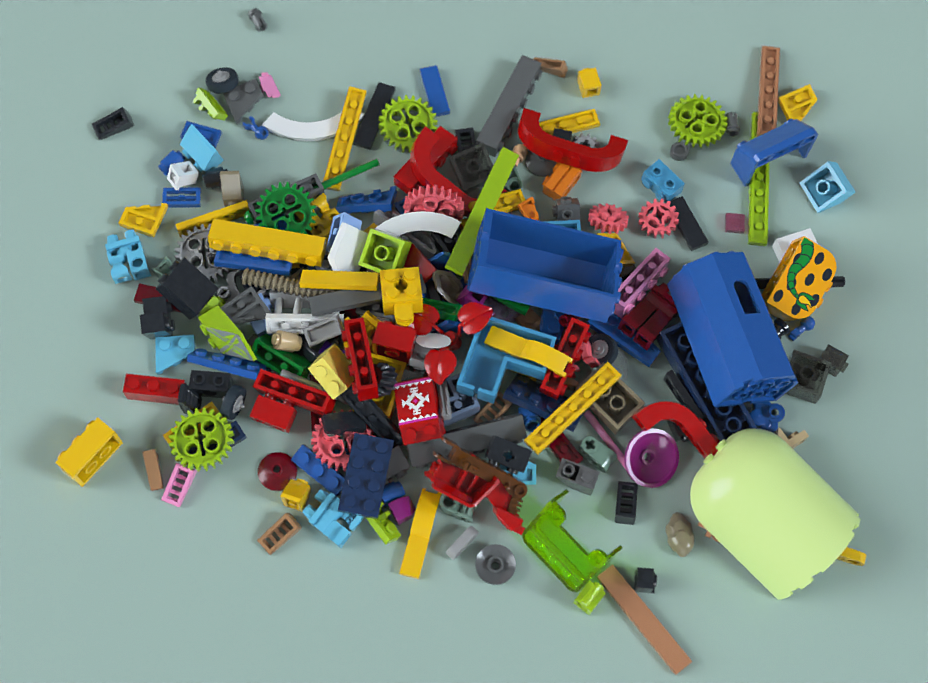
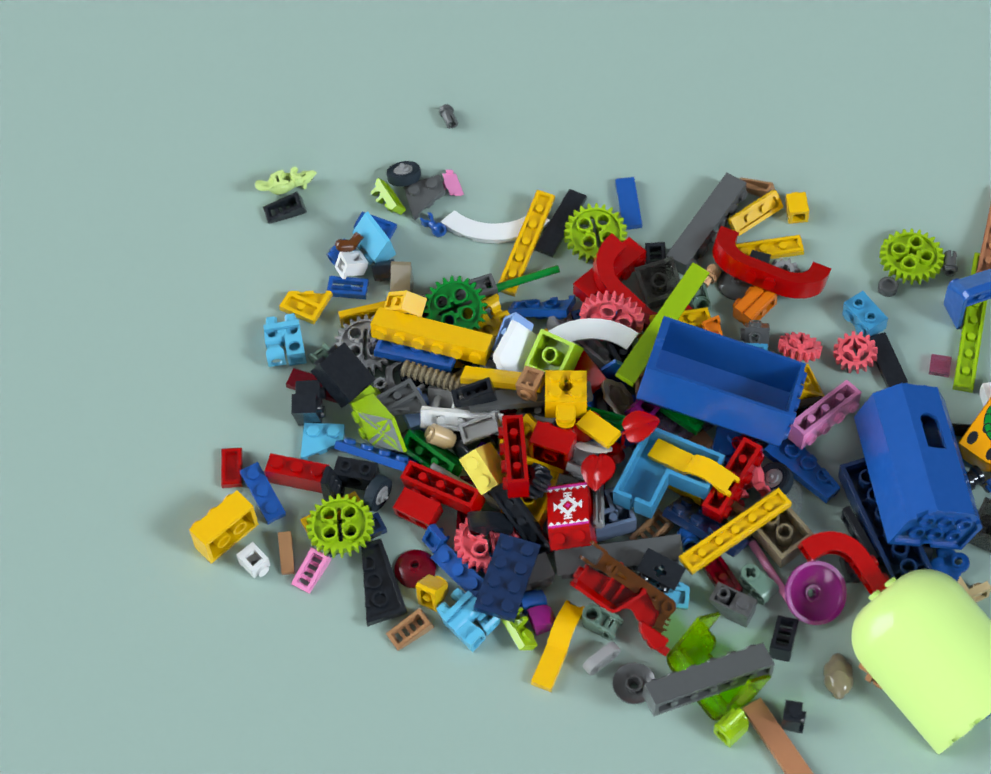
camera: 15 degrees right, 10 degrees down
(91, 388) = (230, 467): none -> red tile
(108, 99) = (282, 182): none -> yellowish green animal
(118, 477) = (252, 555): none -> white brick
(123, 411) = (262, 493): none -> blue plate
(177, 157) = (349, 245): none -> reddish brown arm
(238, 212) = (406, 302): none -> yellow panel
(246, 493) = (381, 589): none -> black wing
(292, 440) = (434, 537): none -> blue tile
(312, 293) = (481, 392): none -> black slope
(365, 284) = (529, 383): none -> medium nougat bracket
(436, 323) = (598, 429): none -> yellow tile
(552, 90) = (755, 212): none -> yellow plate
(564, 557) = (707, 679): none -> dark grey brick
(657, 302) = (831, 450): dark red hips -> none

